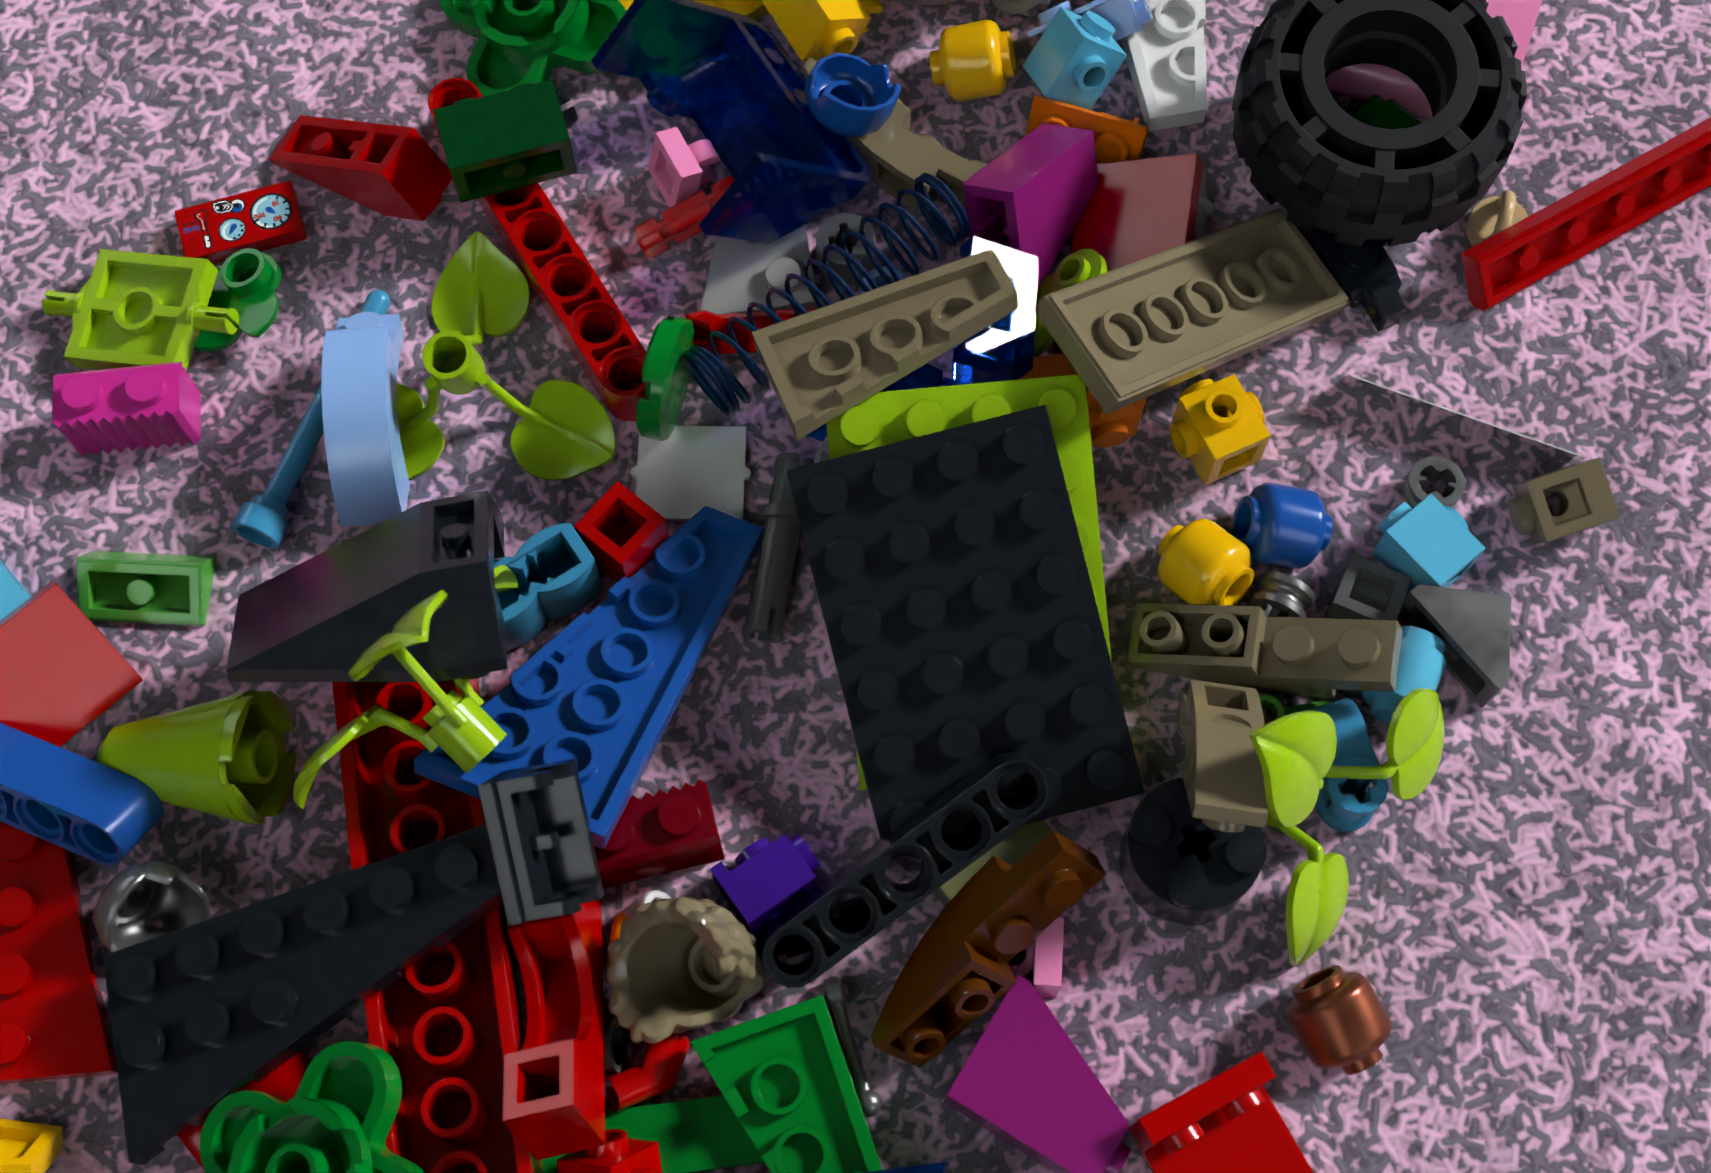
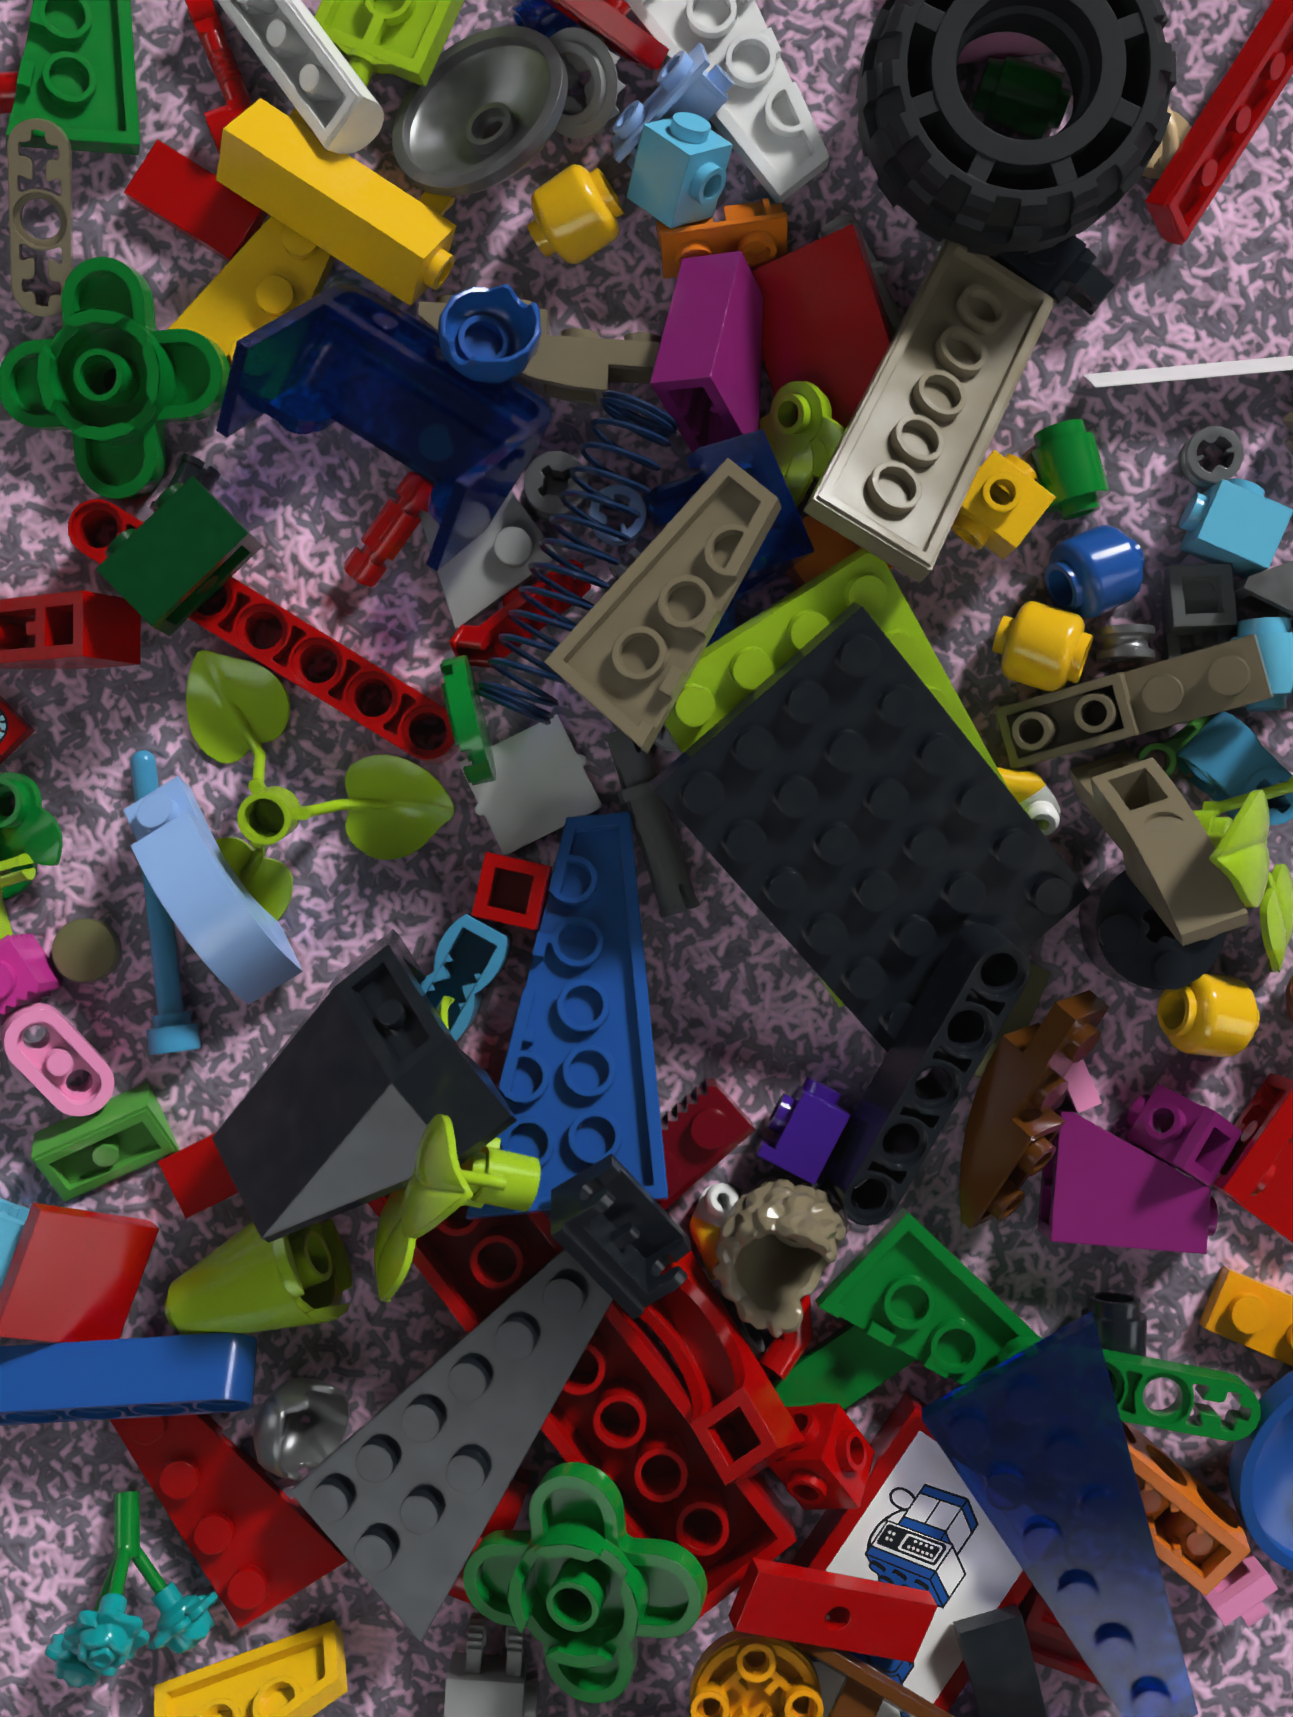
camera: 30 degrees left, 20 degrees up
(151, 488) = (55, 1058): none -> bright pink plate
(203, 654) = (198, 1176): none -> red tile
(235, 422) = (86, 950): none -> olive tile
(680, 167) = (354, 481): bright pink tile -> none
(868, 1099) = (975, 1261): flat silver hinge -> none
(1120, 1046) = (1182, 1133): none -> magenta brick
(1135, 693) = (1034, 798): none -> arm
(1208, 966) = (1209, 1016): none -> yellow head
(1299, 434) = (1070, 468): none -> green brick

